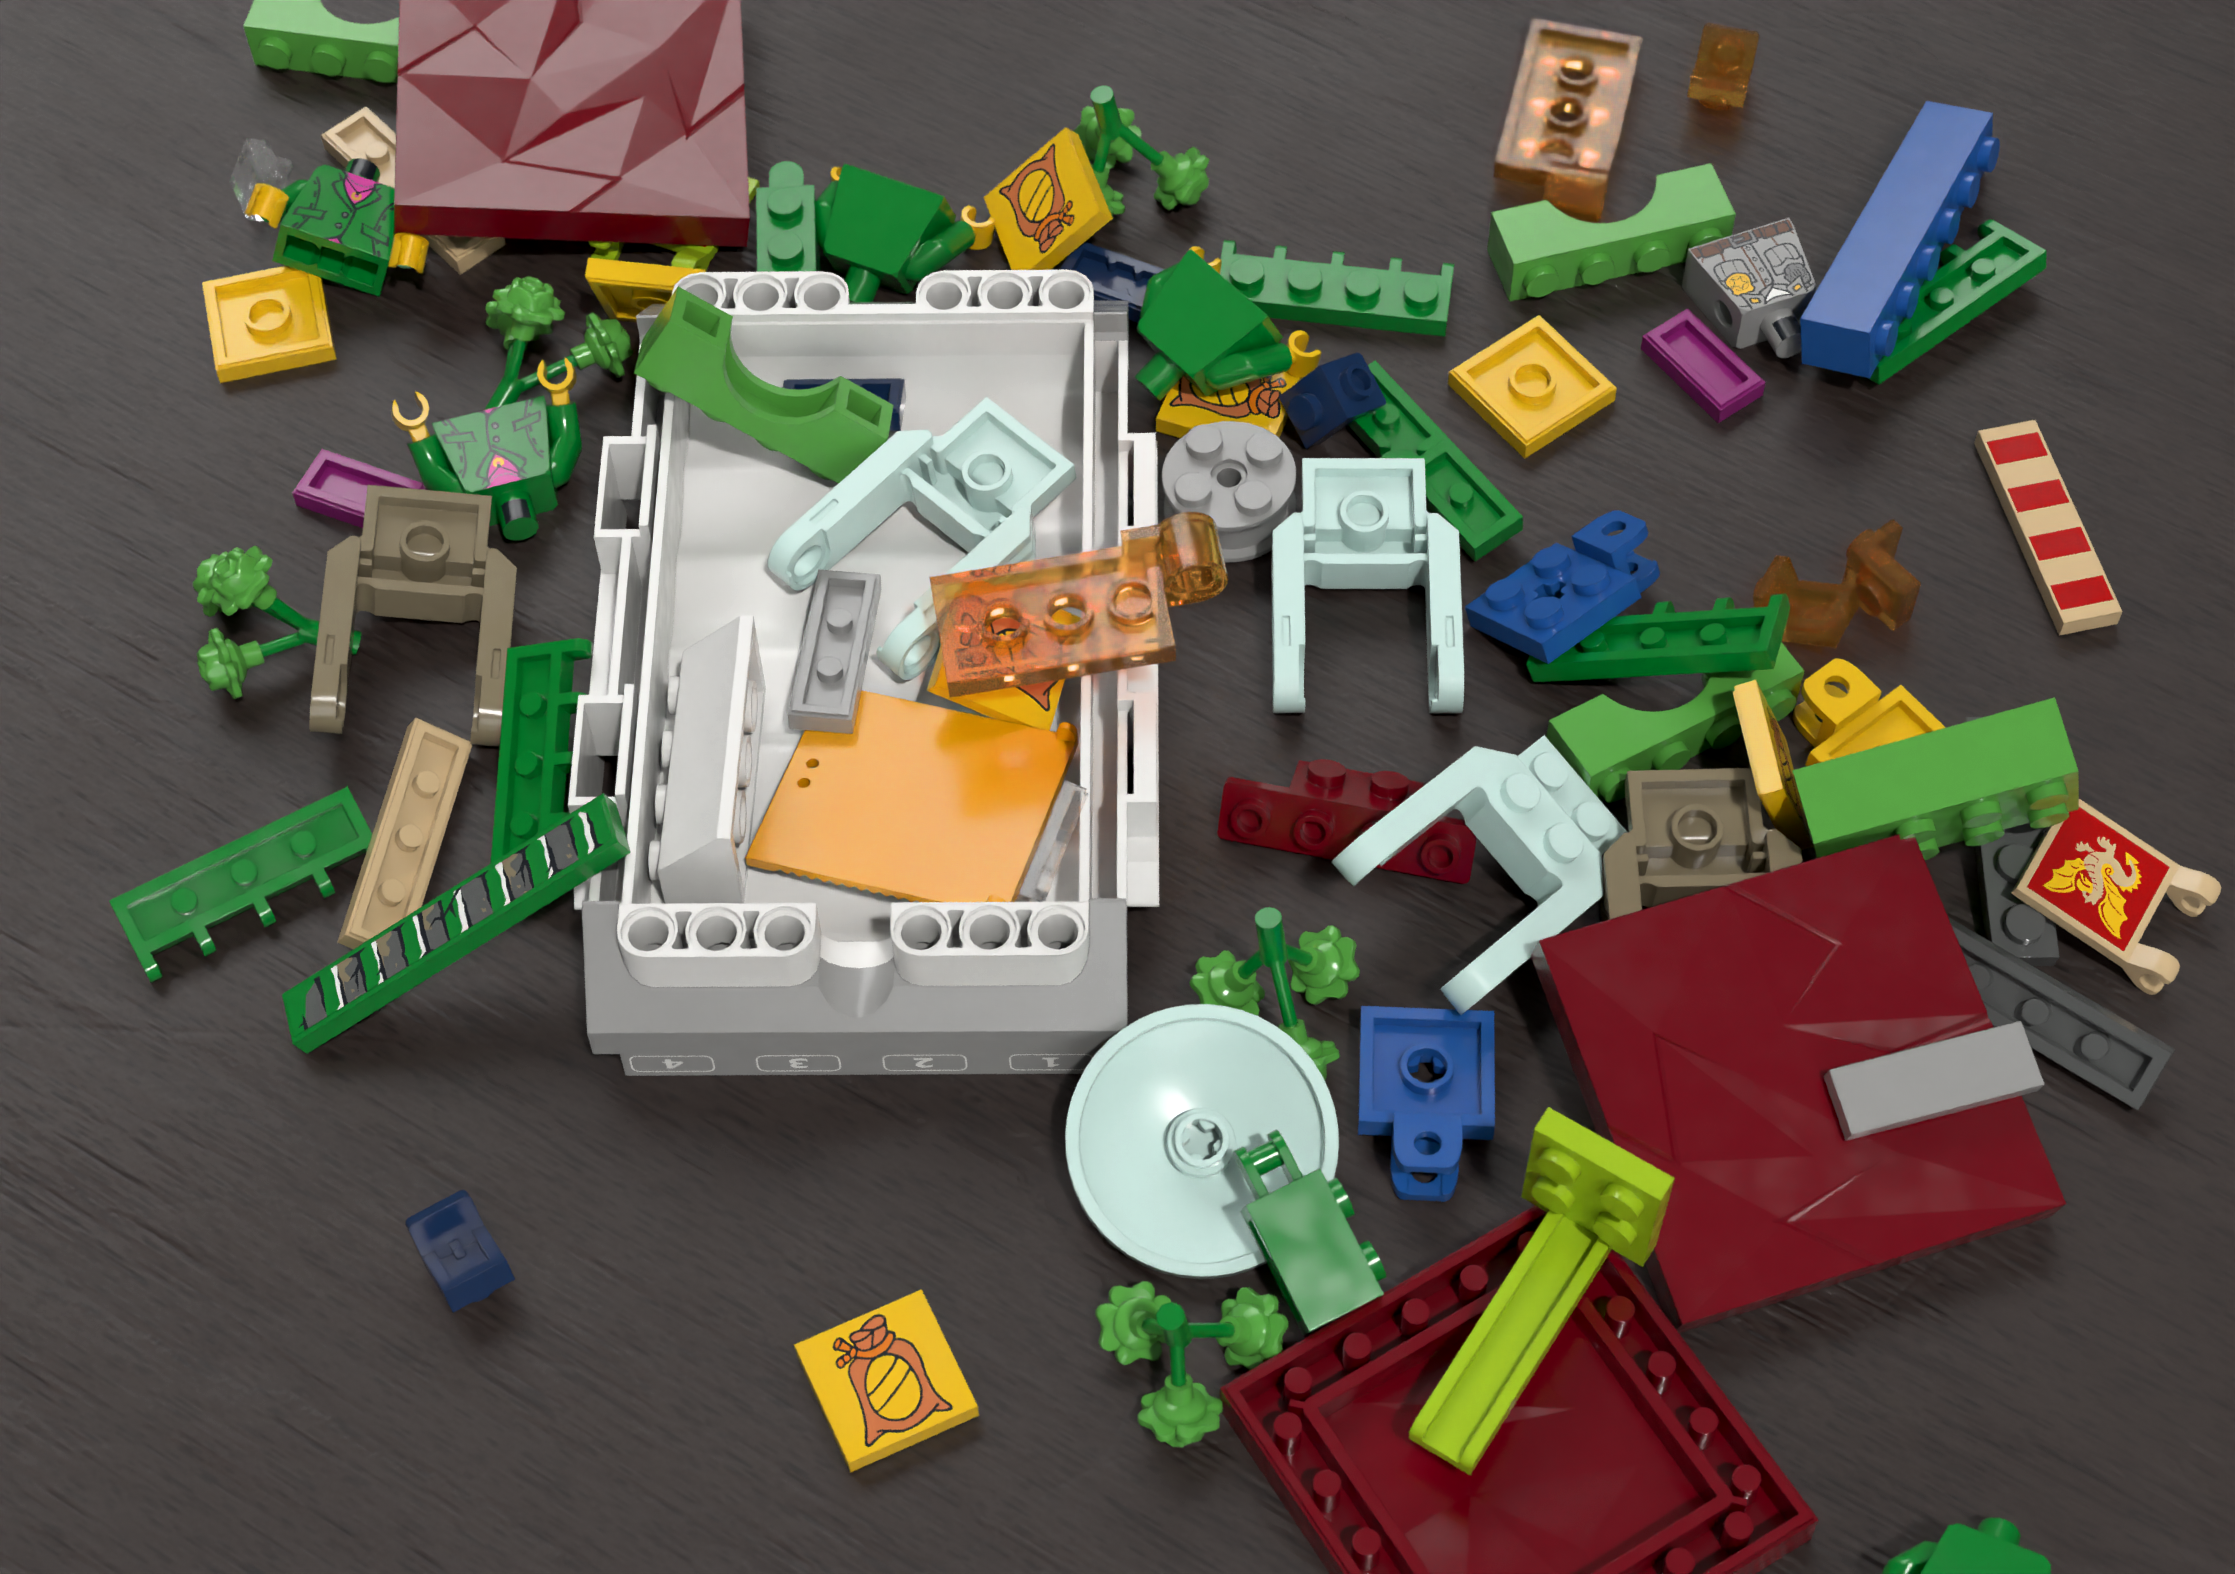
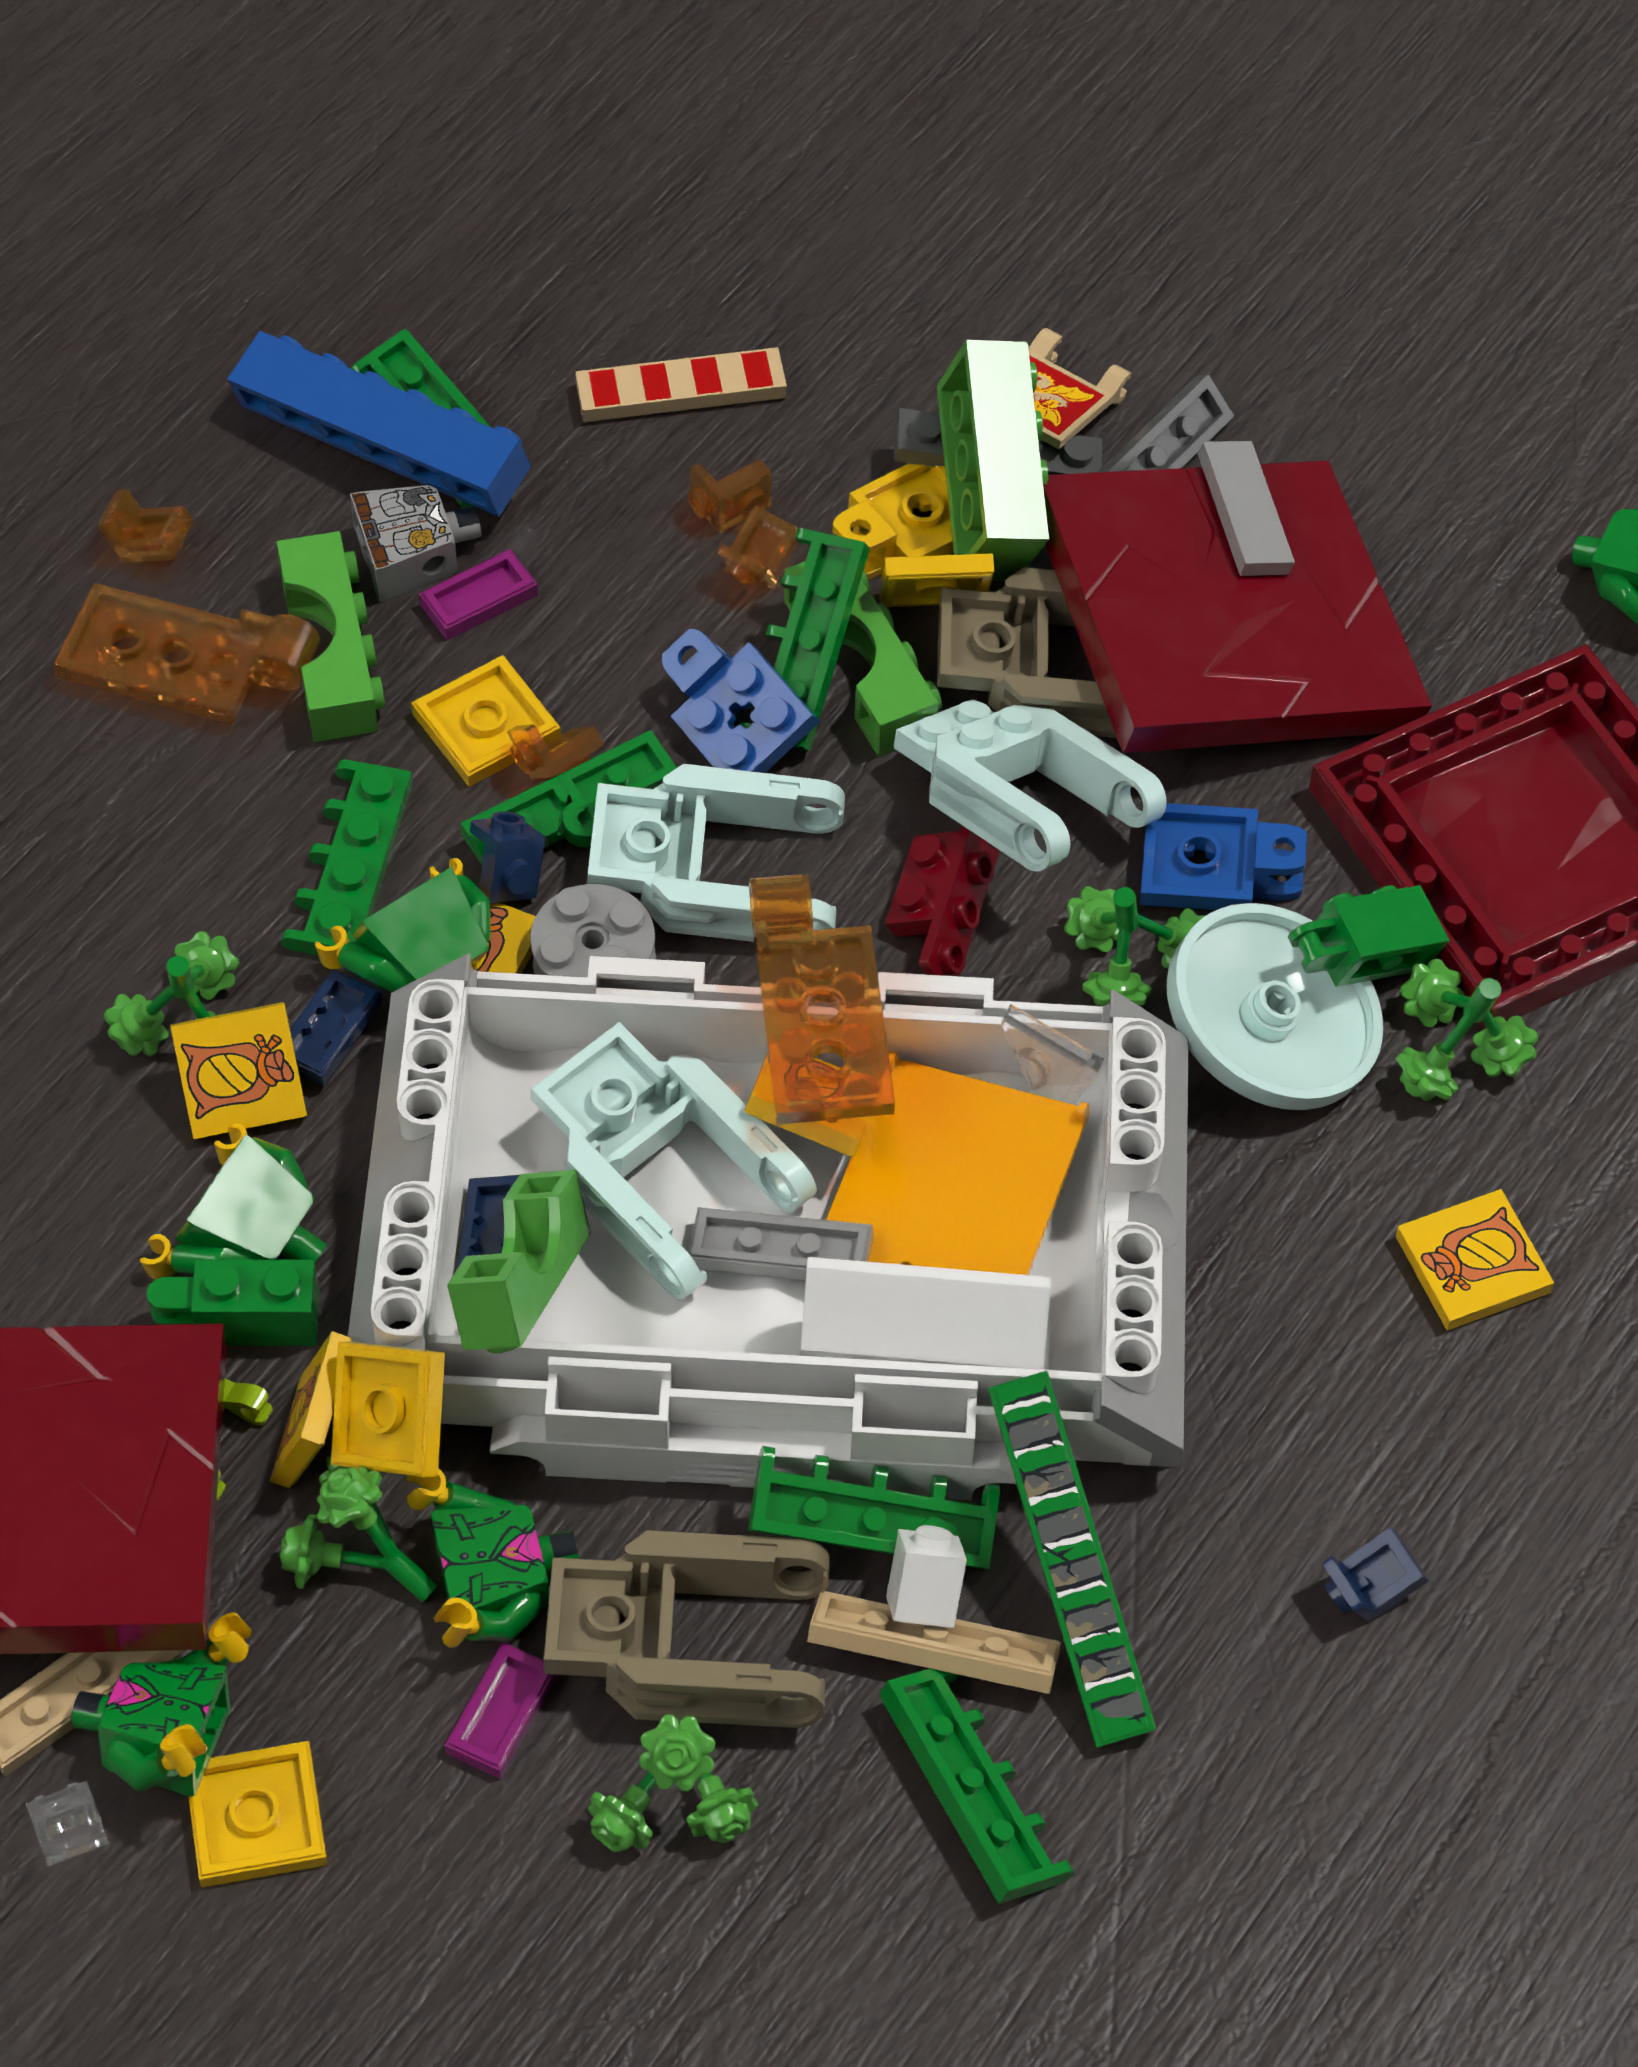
camera: 90 degrees left, 0 degrees up
(461, 815) = (926, 1577): none -> white brick
(607, 311) = (387, 1408): none -> yellow tile
(1484, 445) = (557, 756): none -> clear orange bracket
(1595, 1204) = (1420, 781): lime bracket -> none

